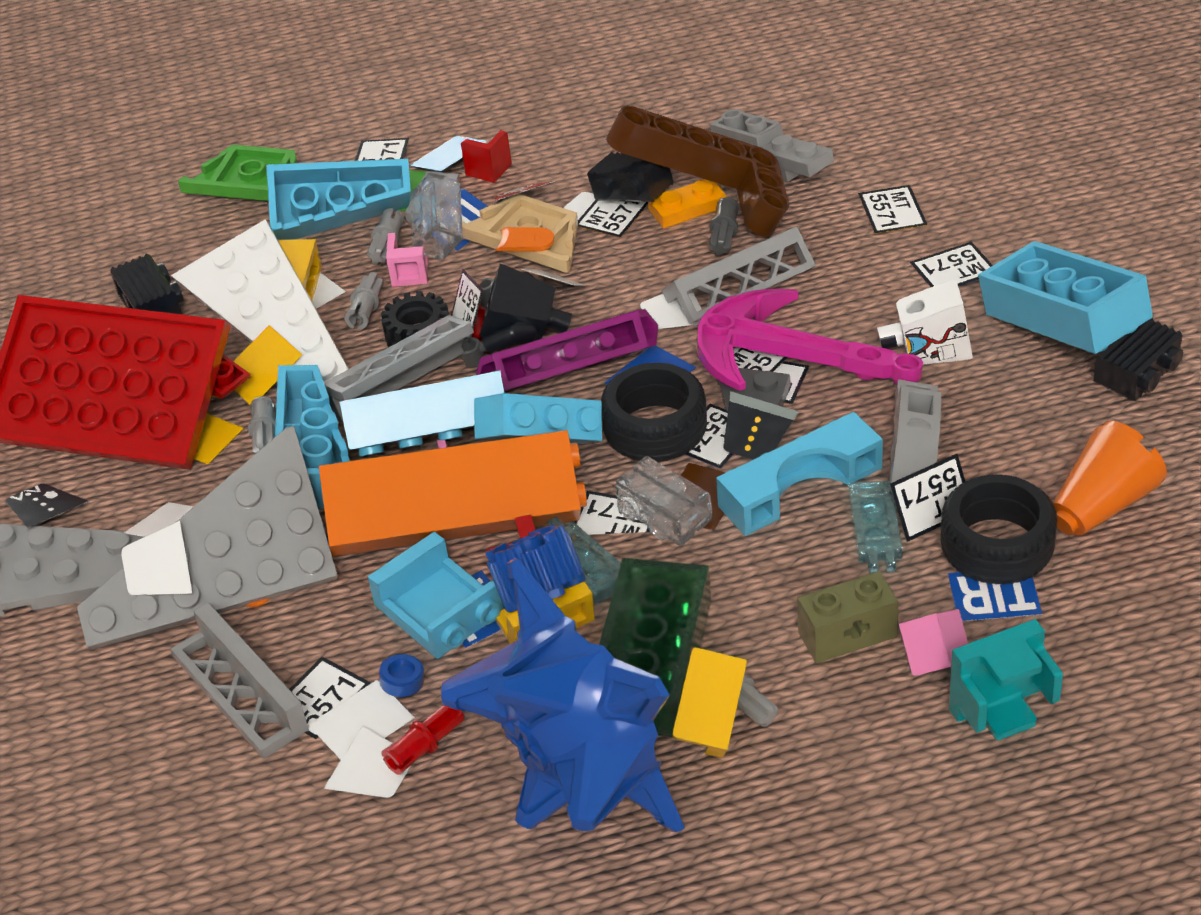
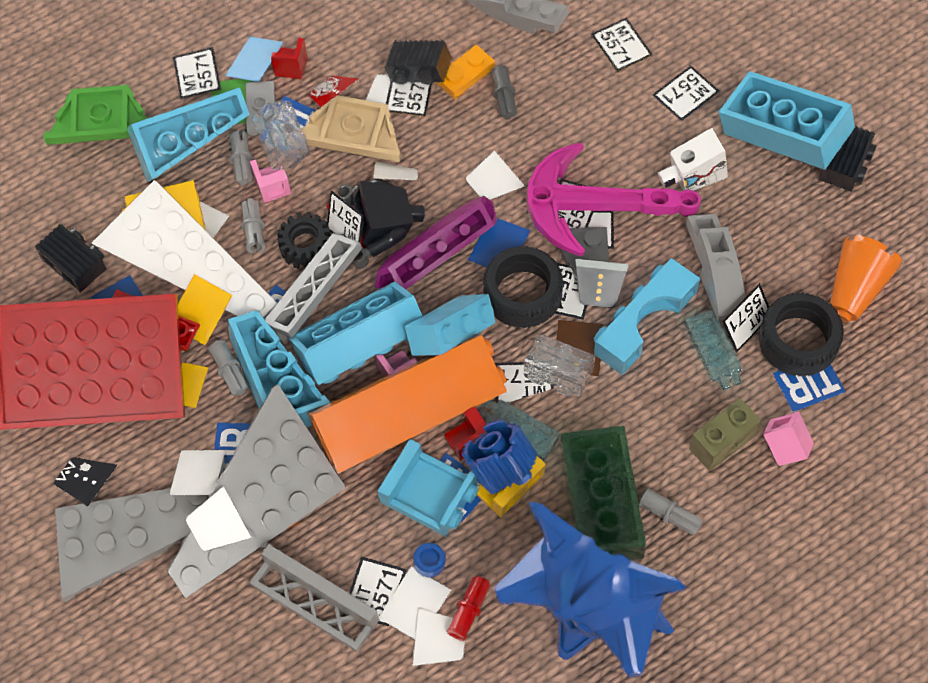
camera: 20 degrees left, 20 degrees up
(525, 239) = (358, 141): orange piece -> none
(708, 156) = (482, 35): reddish brown beam -> none
(709, 700) = (665, 535): yellow panel -> none
(733, 265) = (526, 133): light grey fence -> none
(997, 674) = (846, 468): teal panel -> none

